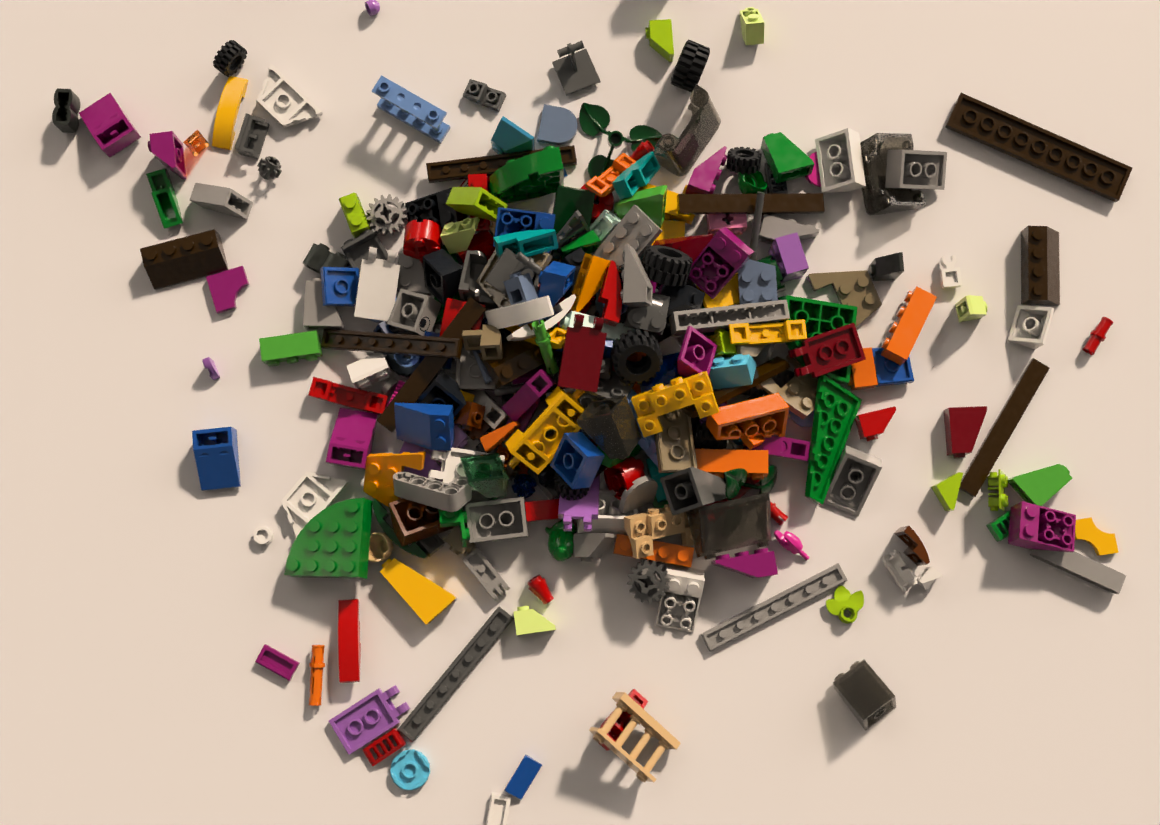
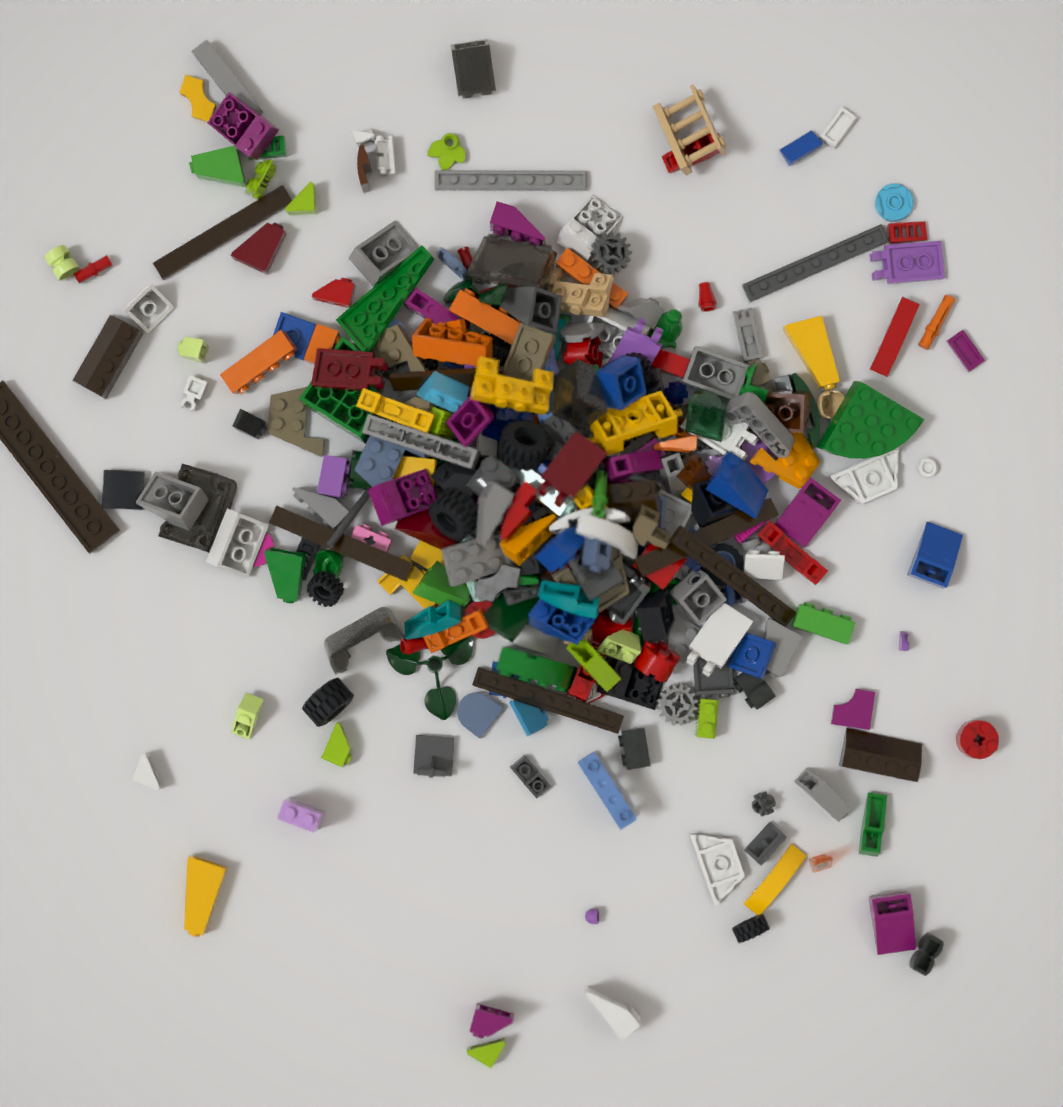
camera: 145 degrees left, 5 degrees up
(101, 304) = (967, 734): none -> red brick
(168, 151) = (850, 862): magenta slope -> none
(405, 160) = (635, 748): none -> pearl dark grey brick
(530, 621) = (728, 273): yellowish green slope -> none
(592, 237) = (489, 587): none -> flat silver tile
(705, 174) = (371, 590): magenta slope -> none
(788, 501) = (450, 261): none -> sand blue tile
(791, 543) = (467, 226): dark pink hand -> none
(964, 160) = (122, 489): none -> black slope
(1126, 325) = (63, 265): none -> yellowish green wheel

